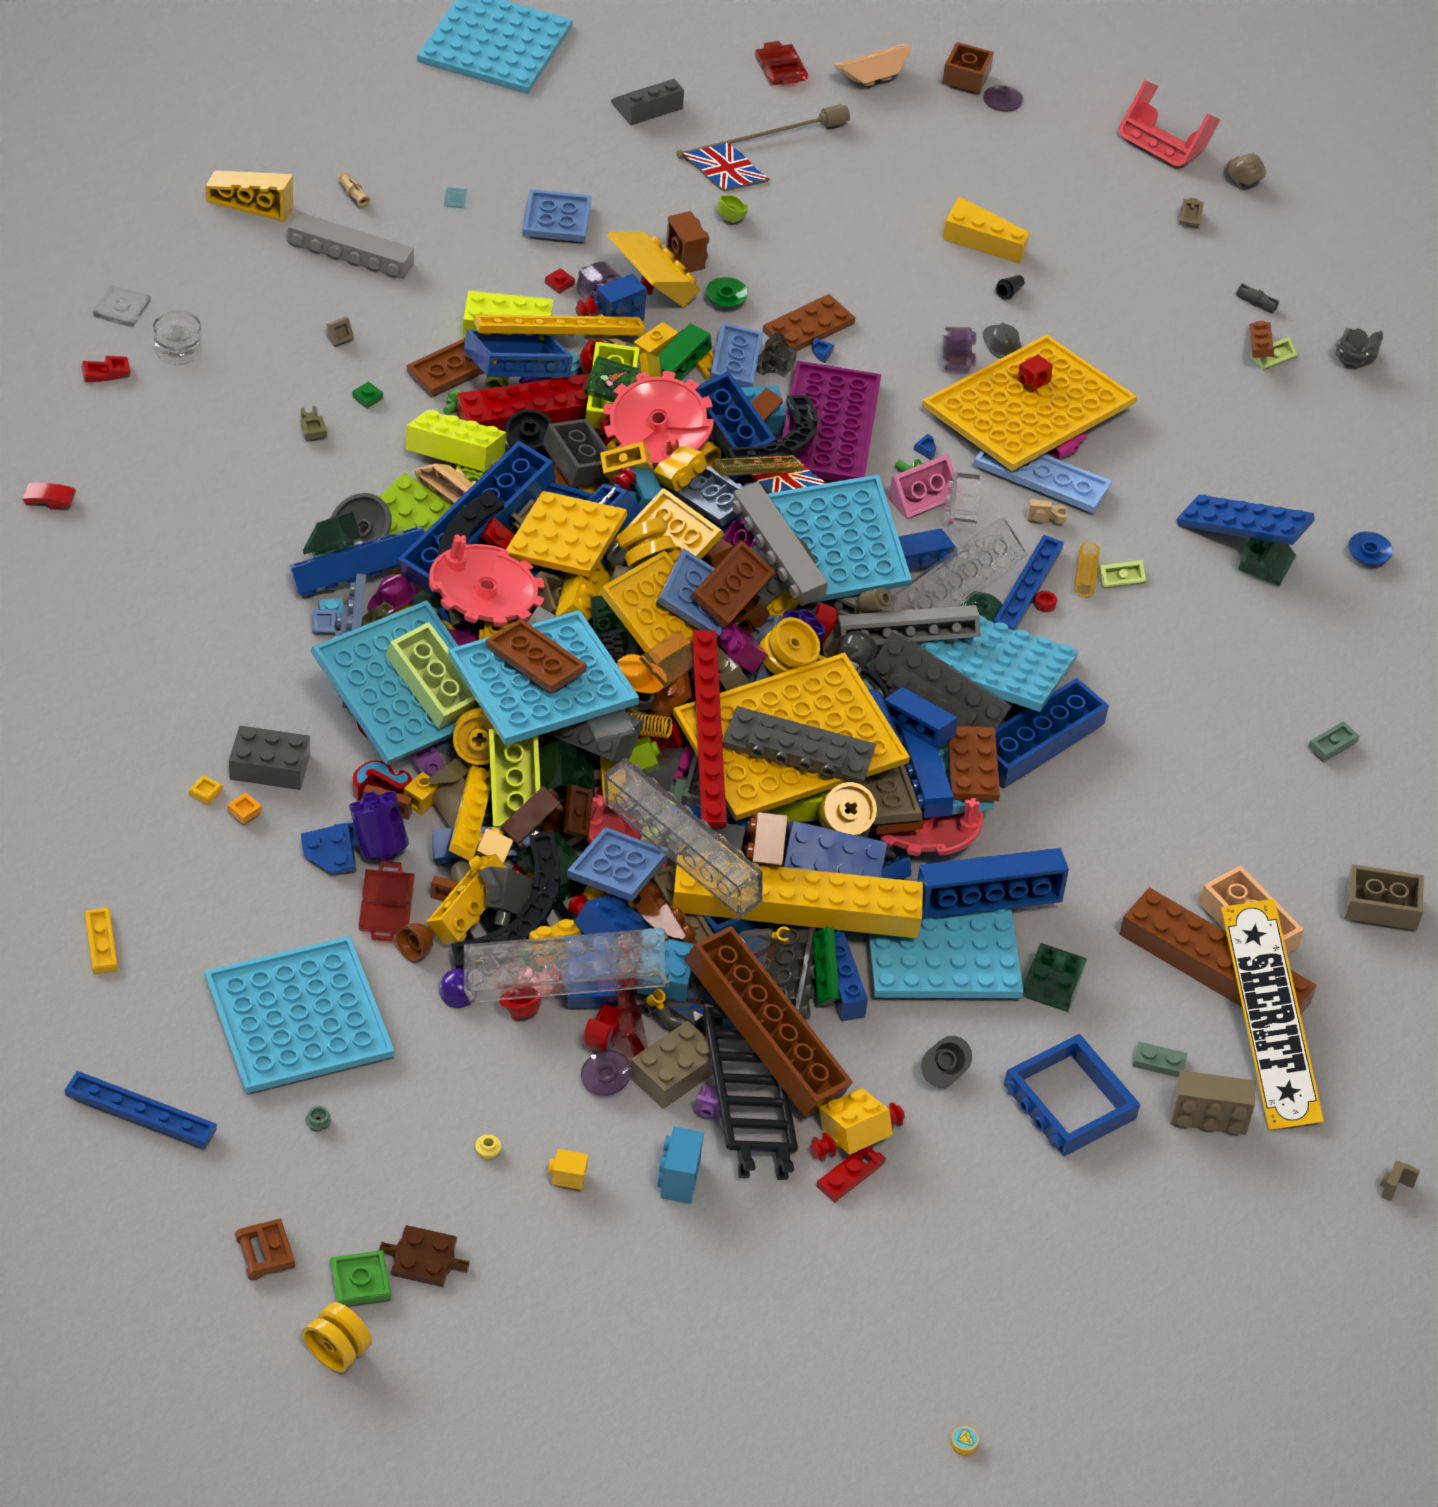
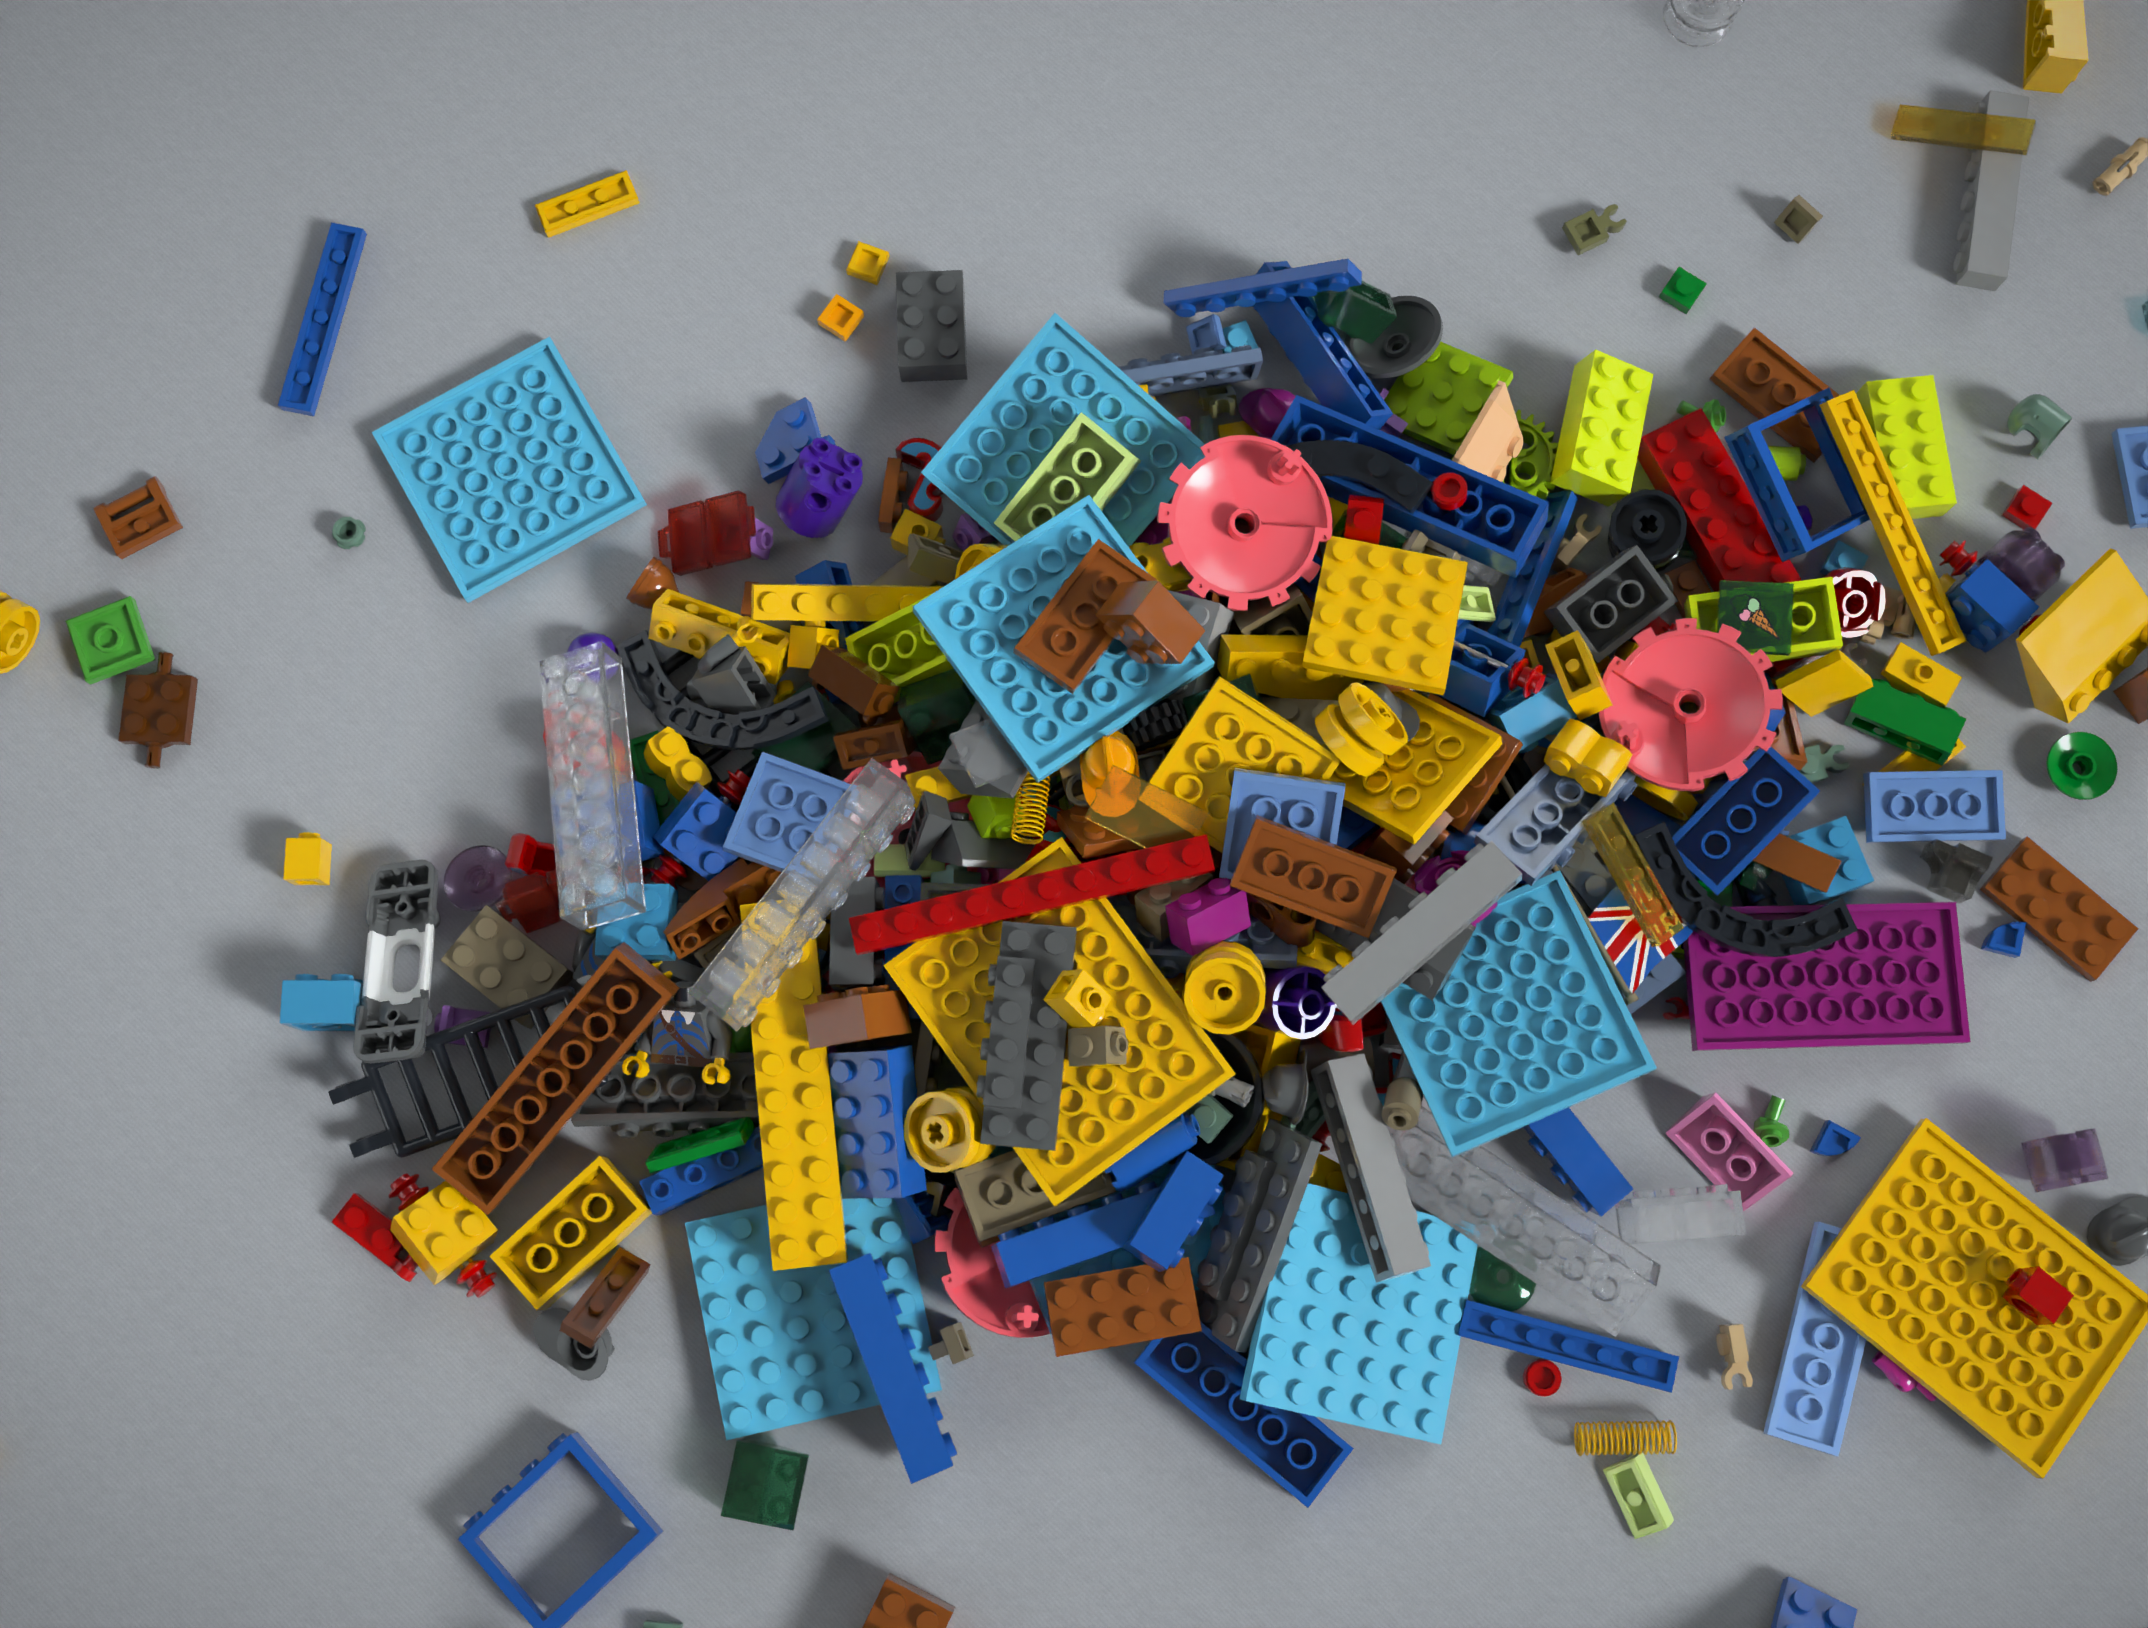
camera: 85 degrees right, 30 degrees up
(309, 244) = (1963, 129): none -> clear yellow tile
(311, 574) = (1268, 286): none -> blue plate
(488, 1152) = (347, 758): light yellow plate -> none
(497, 484) = (1449, 491): none -> red tile
(505, 259) = (2039, 417): none -> sand green helmet
(555, 613) = (1150, 623): none -> dark orange brick
(624, 1110) = (397, 914): none -> dark grey piece
(785, 705) = (1078, 998): none -> yellow brick
(815, 710) = (1097, 1046): none -> dark tan bracket
(871, 1051) = (571, 1233): none -> yellow brick
(919, 1034) = (605, 1297): none -> reddish brown plate

